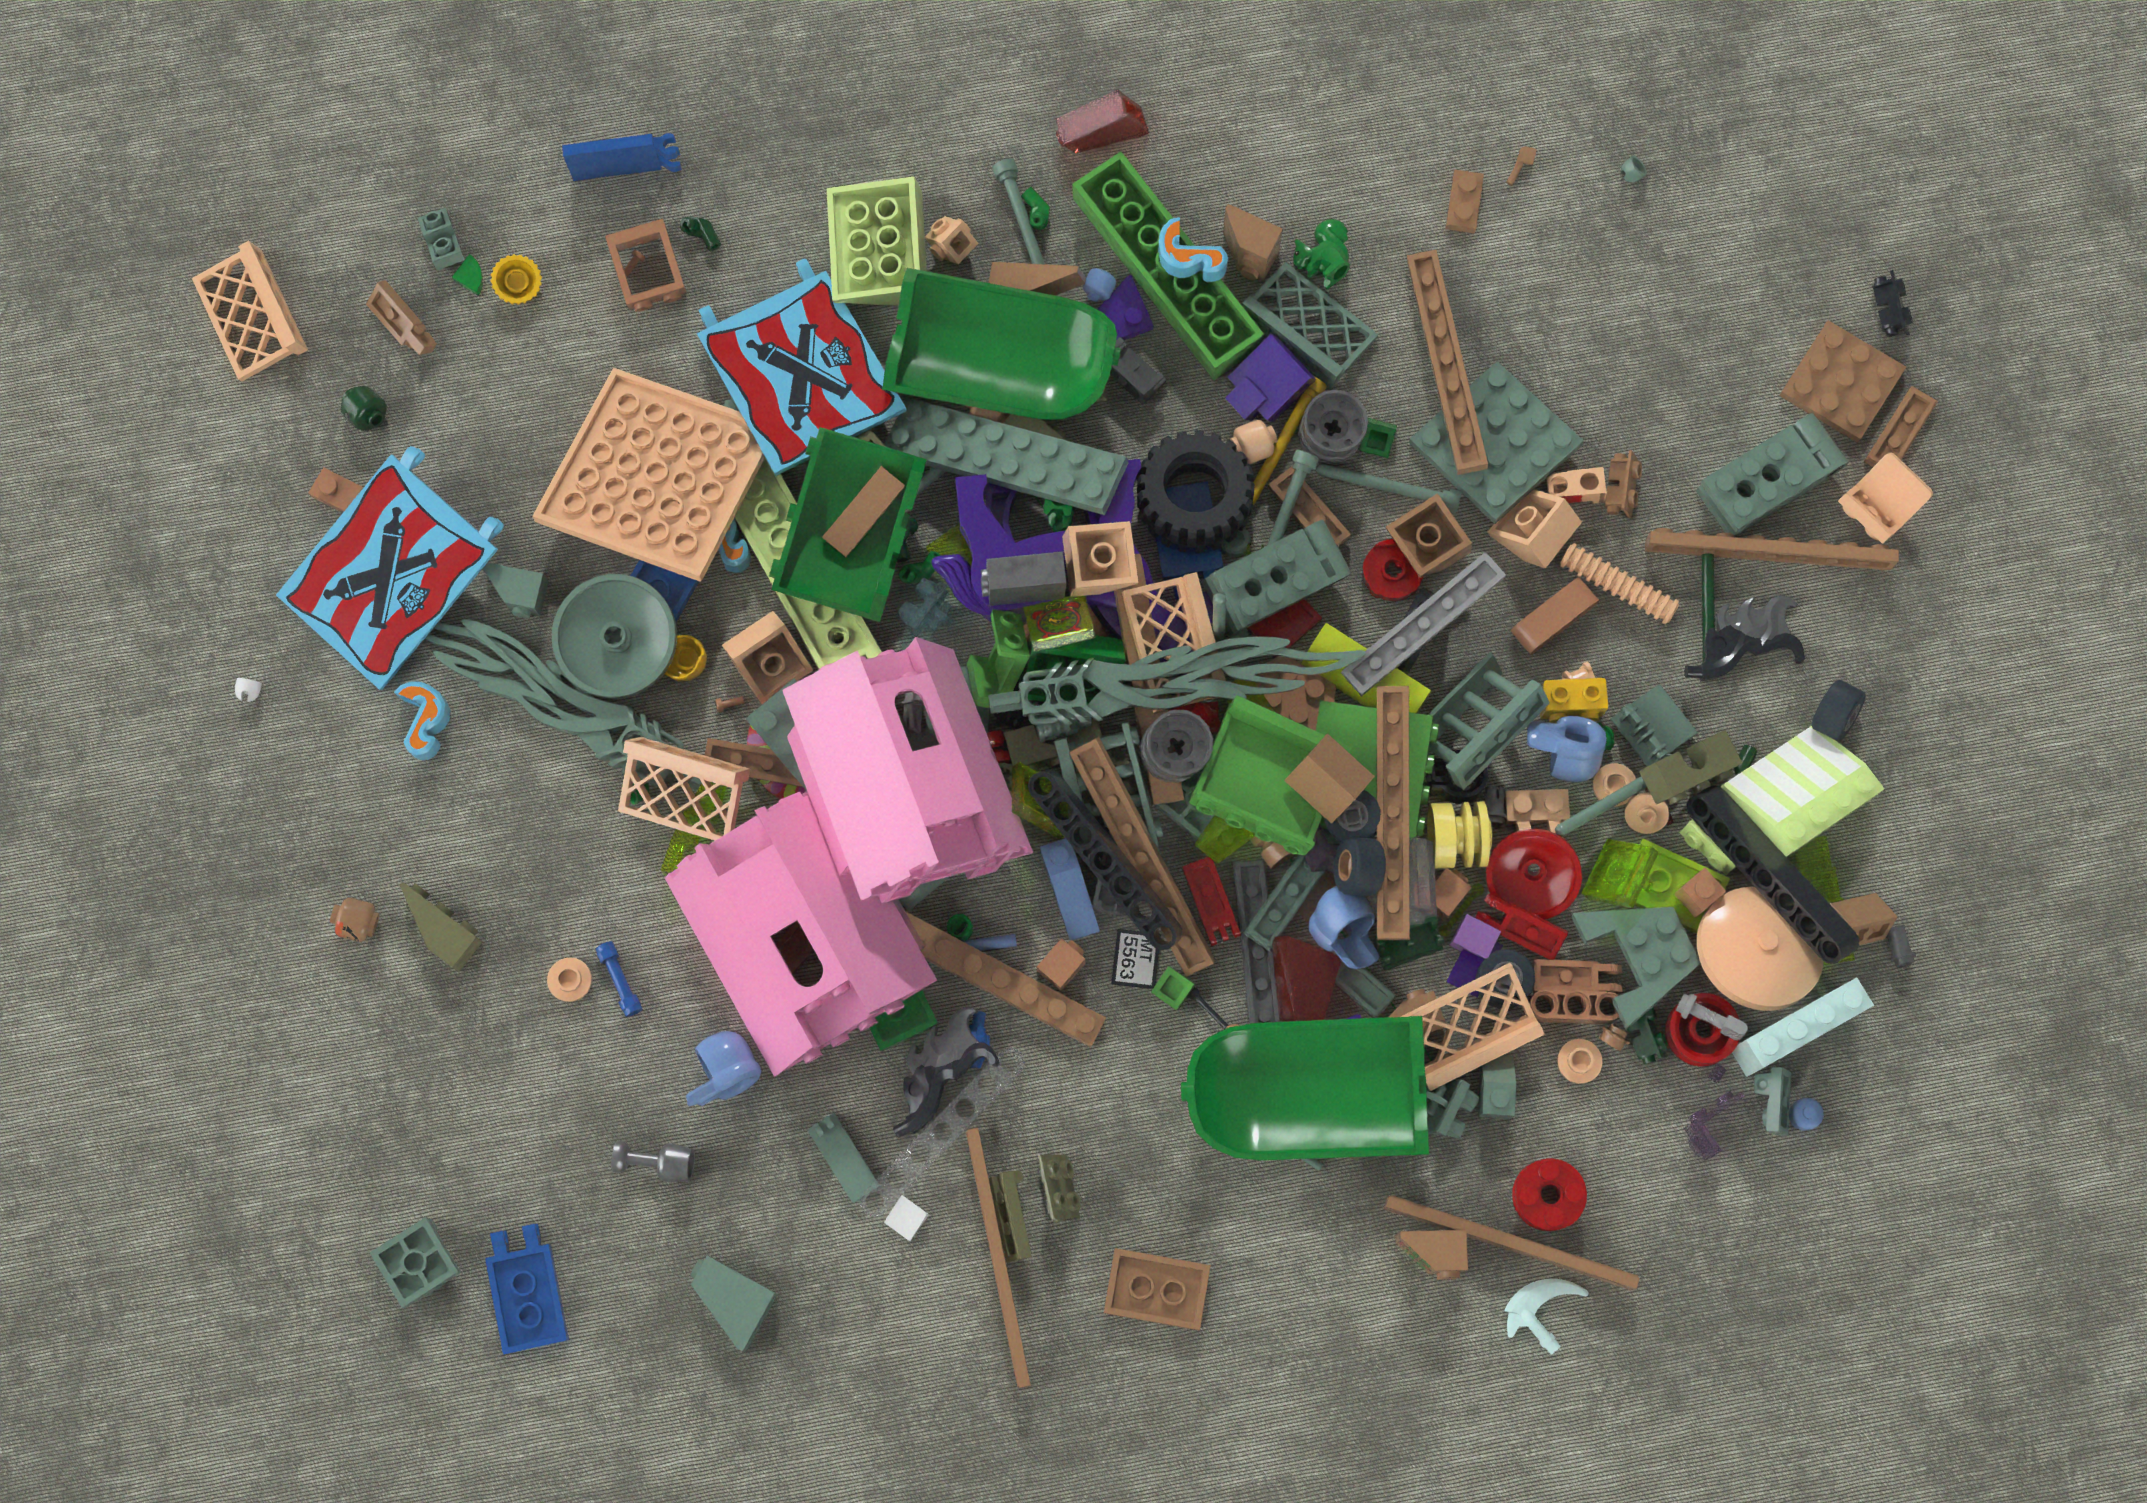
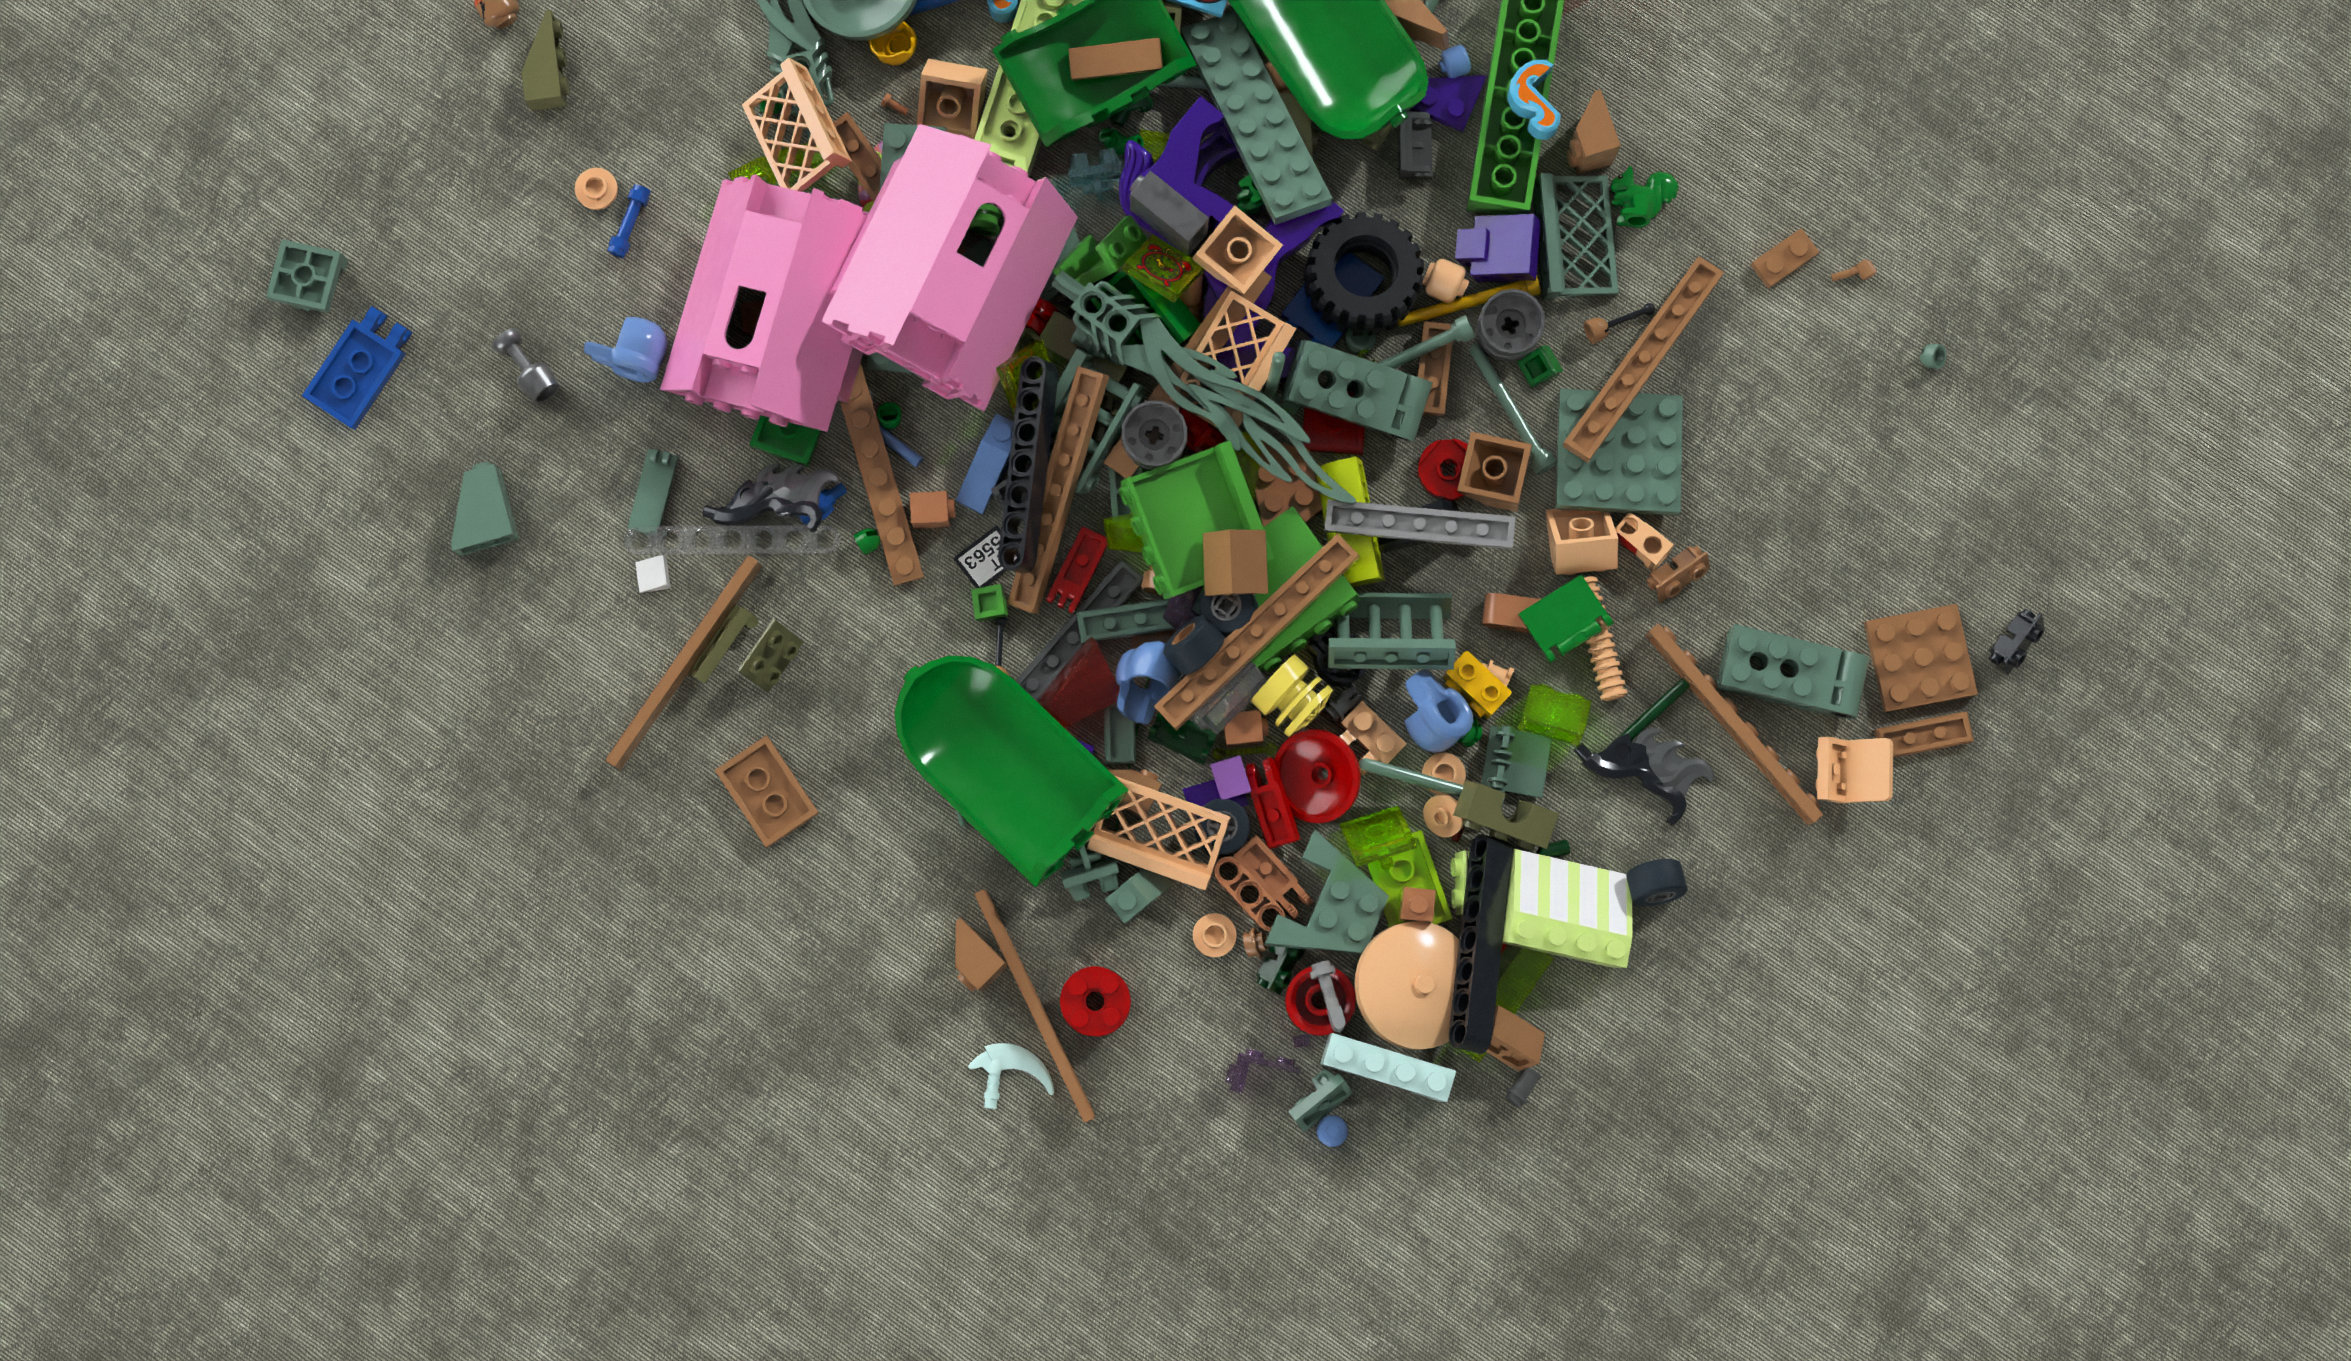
camera: 45 degrees right, 5 degrees up
(1038, 1032) = (867, 540): none -> green hinge
(1390, 372) = (1598, 328): none -> hinge
(1585, 591) = (1565, 618): none -> green piece
(1646, 665) = (1554, 714): none -> clear neon green brick

